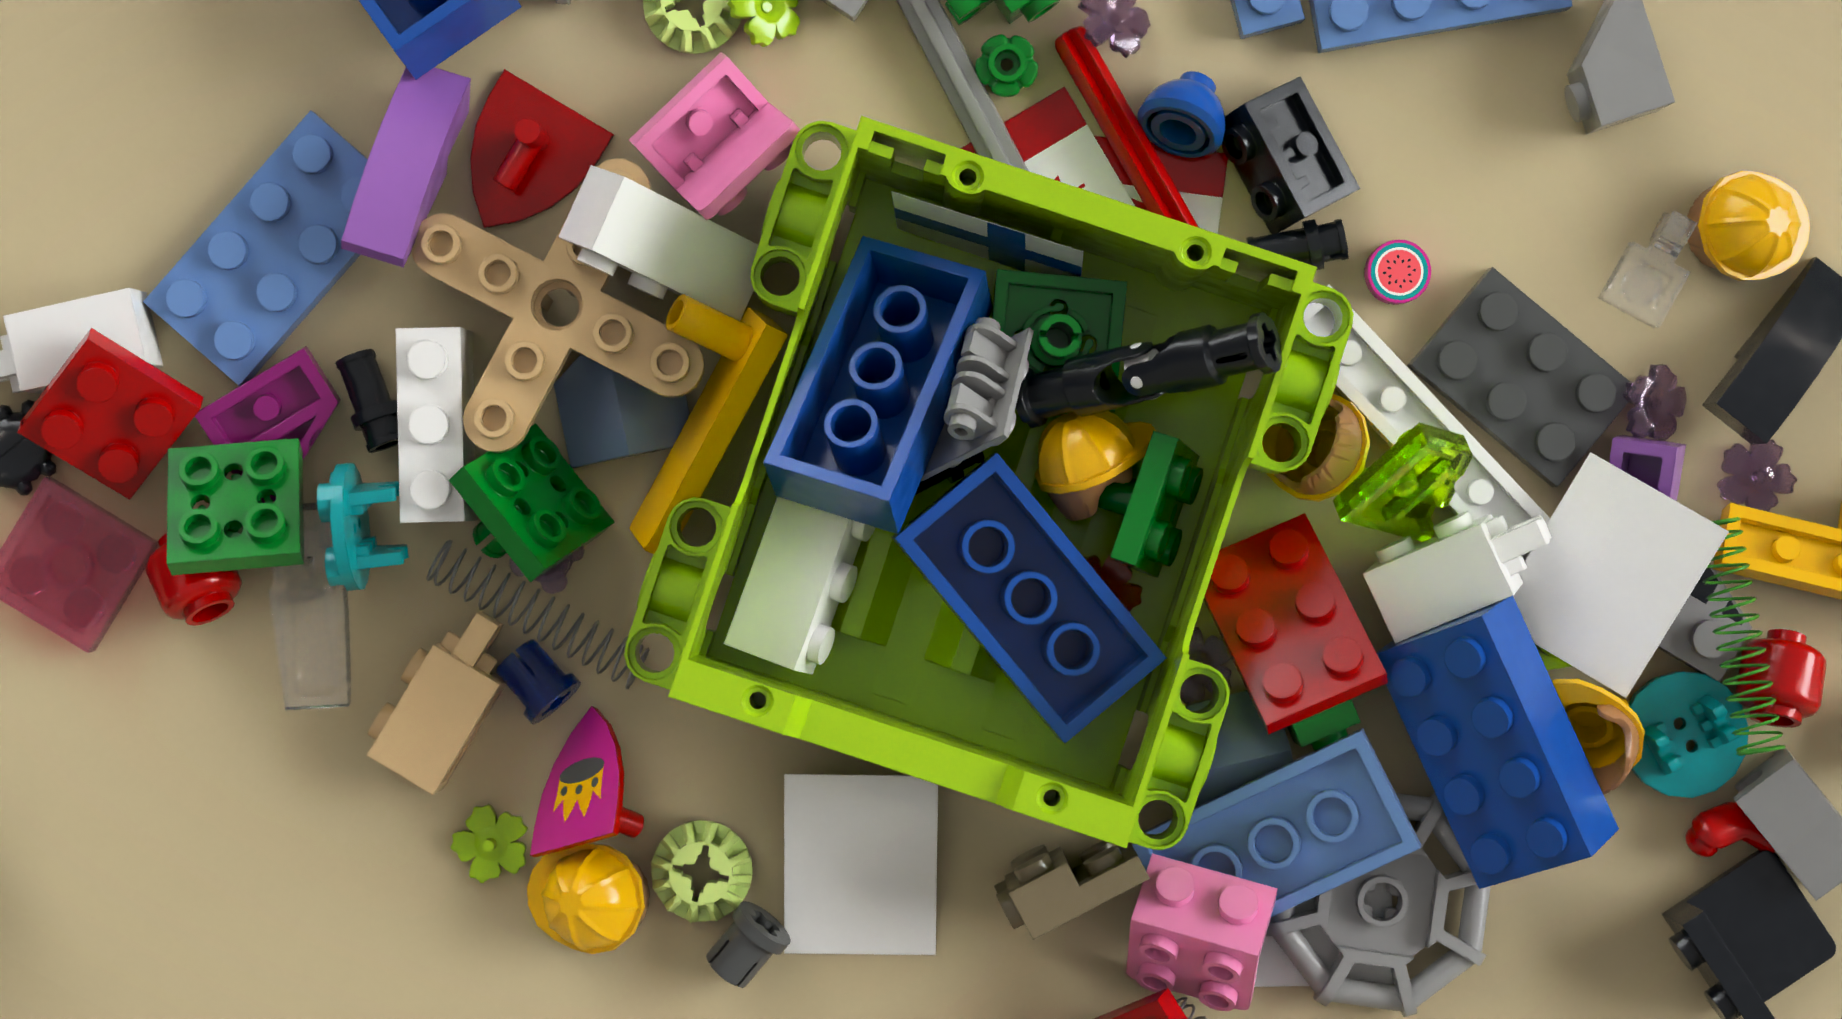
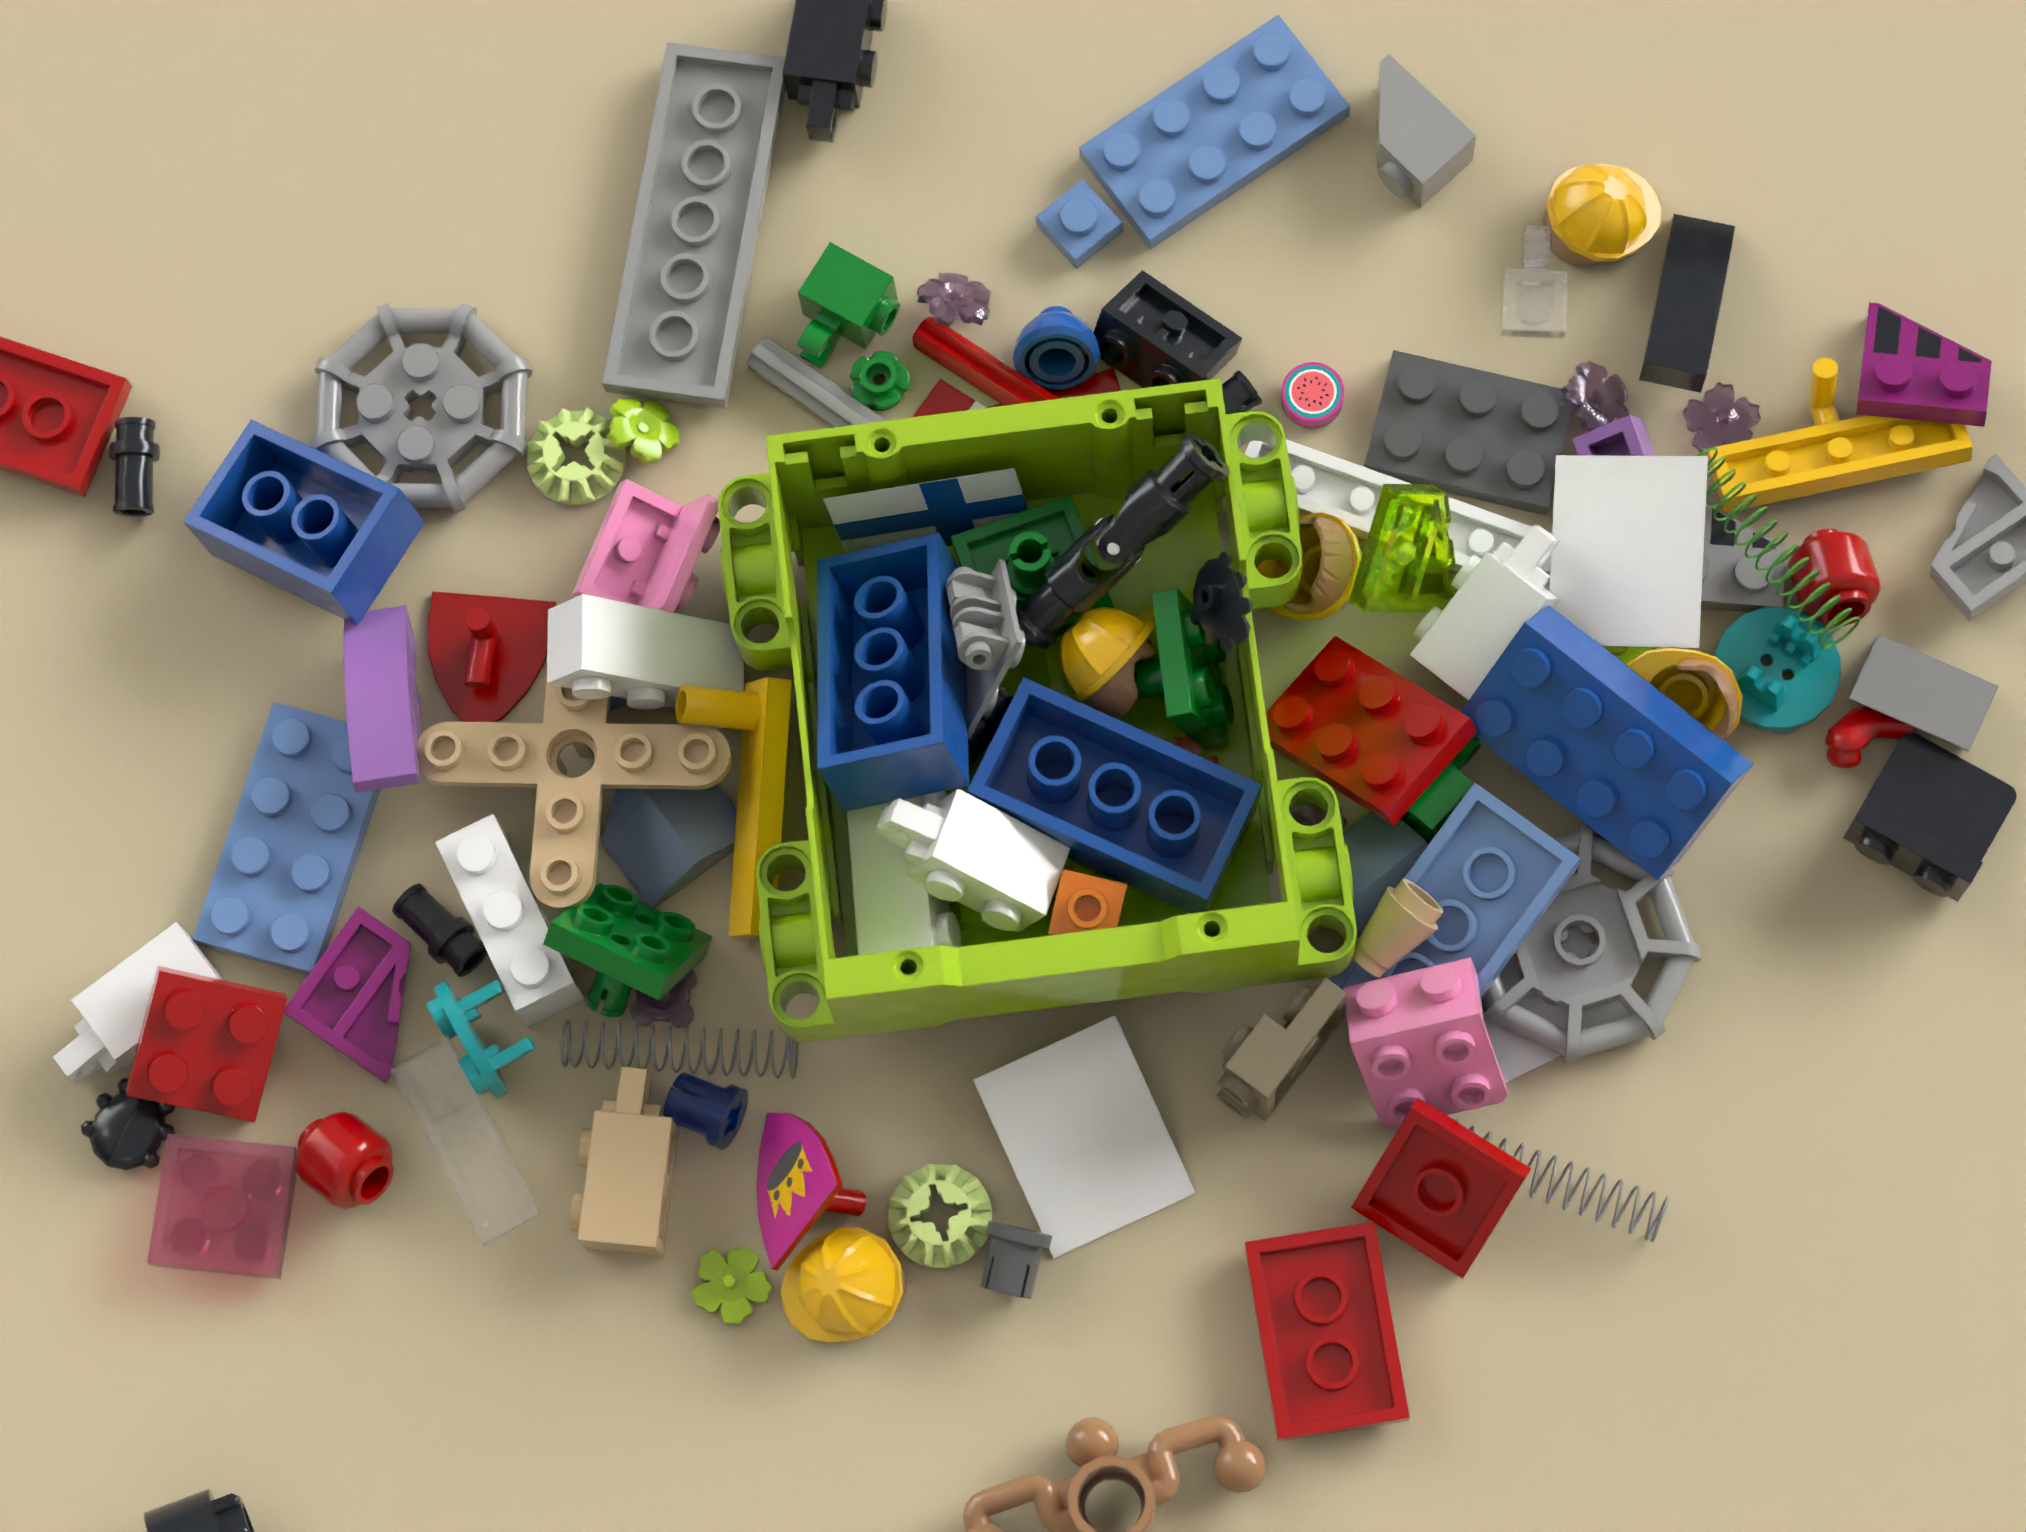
camera: 20 degrees left, 15 degrees down
(237, 525) = (364, 1077): green plate -> none
(878, 599) = (977, 857): none -> white hinge
(954, 687) = (1086, 903): none -> orange brick
(1210, 483) = (1220, 603): none -> black piece
(1228, 828) = (1396, 927): none -> tan cone

